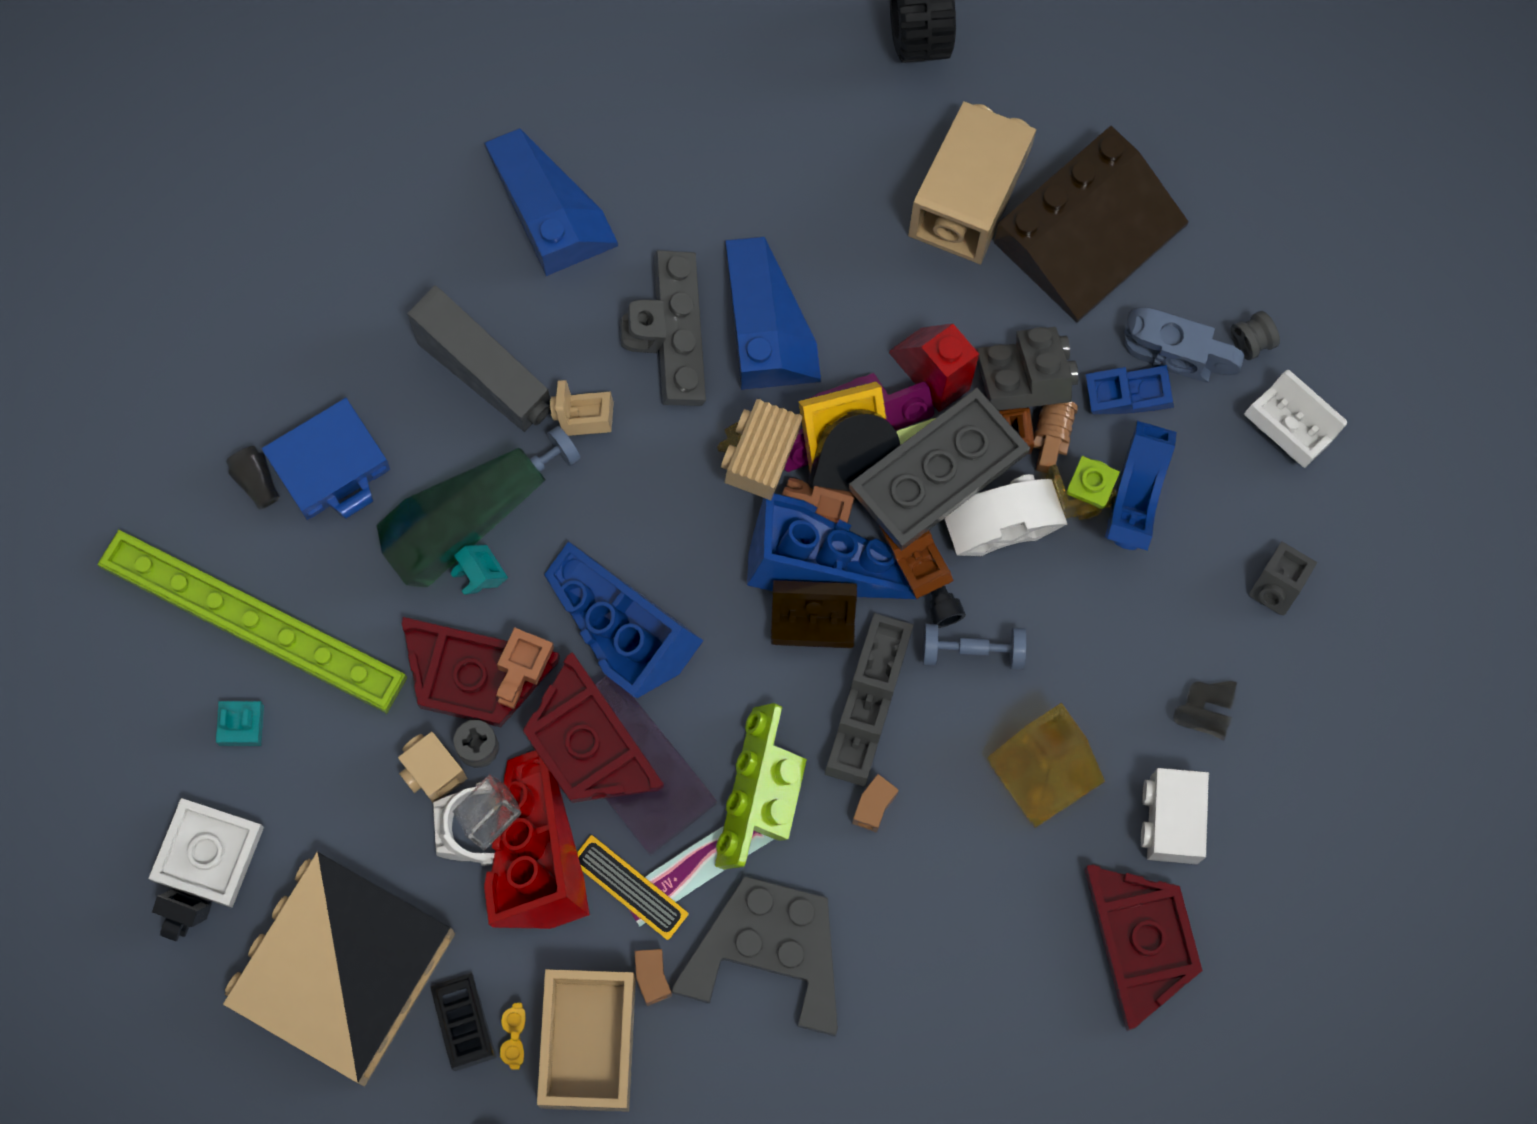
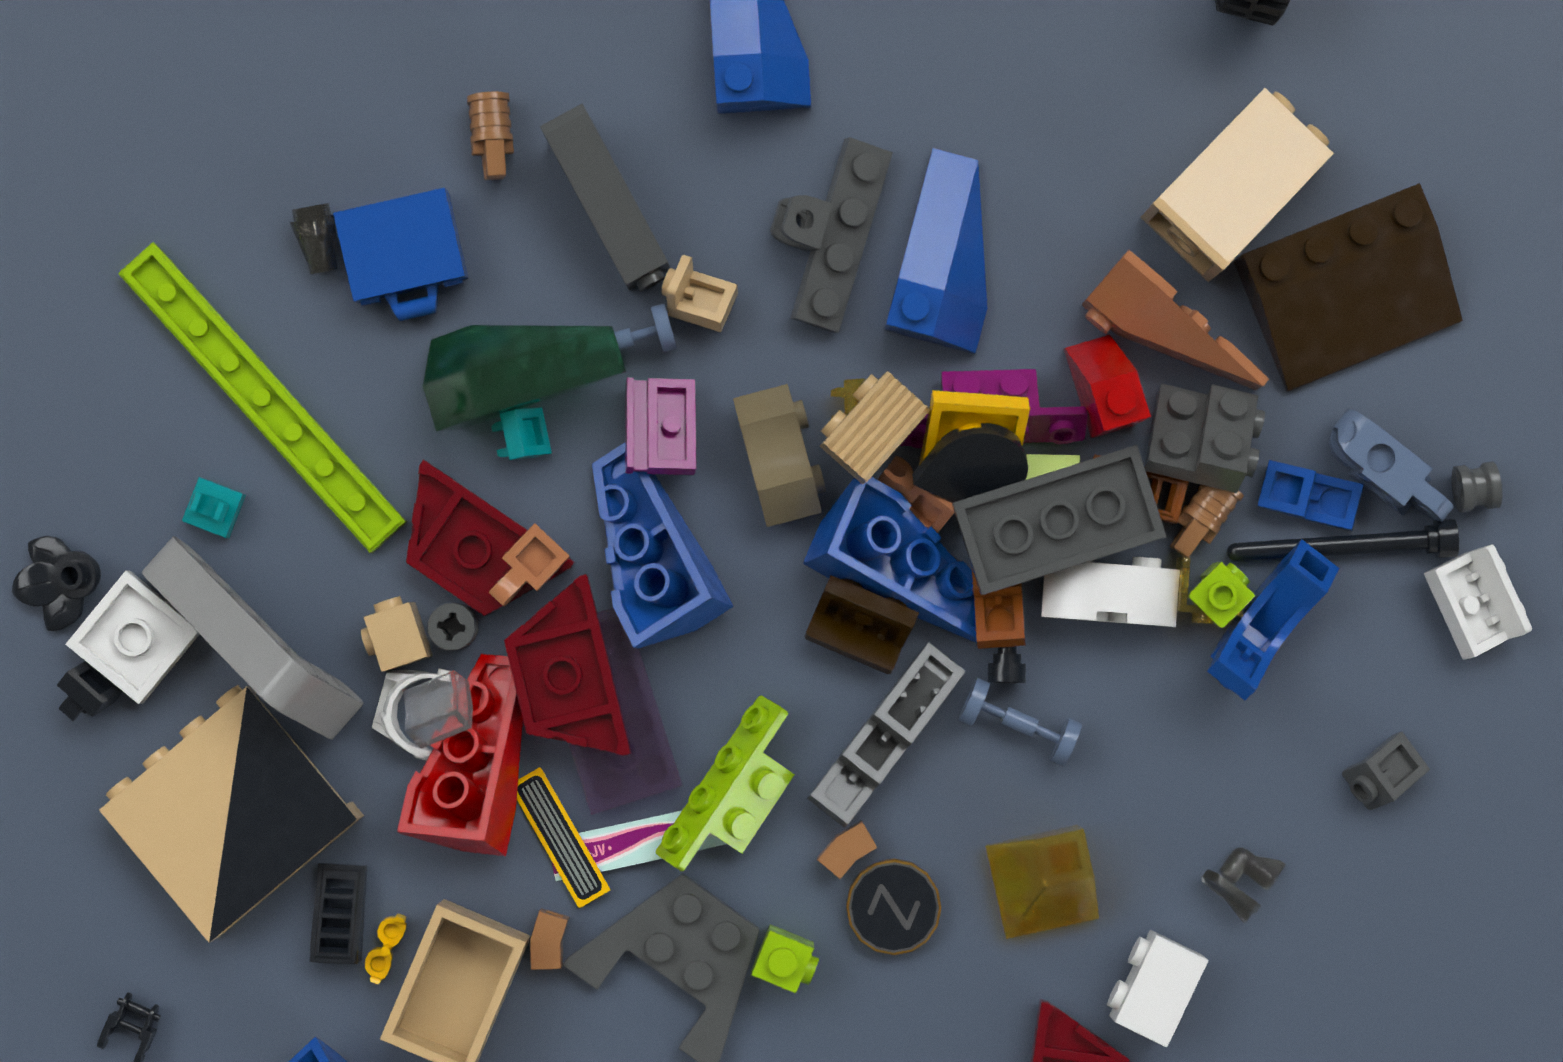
camera: 25 degrees right, 15 degrees up
(118, 835) = (50, 581): none -> black plate
(311, 811) = (249, 642): none -> light grey beam
(368, 347) = (491, 131): none -> medium nougat hinge
(590, 520) = (660, 426): none -> plate
(698, 513) = (778, 455): none -> dark tan brick
(859, 911) = (785, 959): none -> lime brick
(931, 837) = (893, 906): none -> black tile
(939, 293) = (1142, 309): none -> nougat wedge
(1244, 385) = (1438, 538): none -> black piece

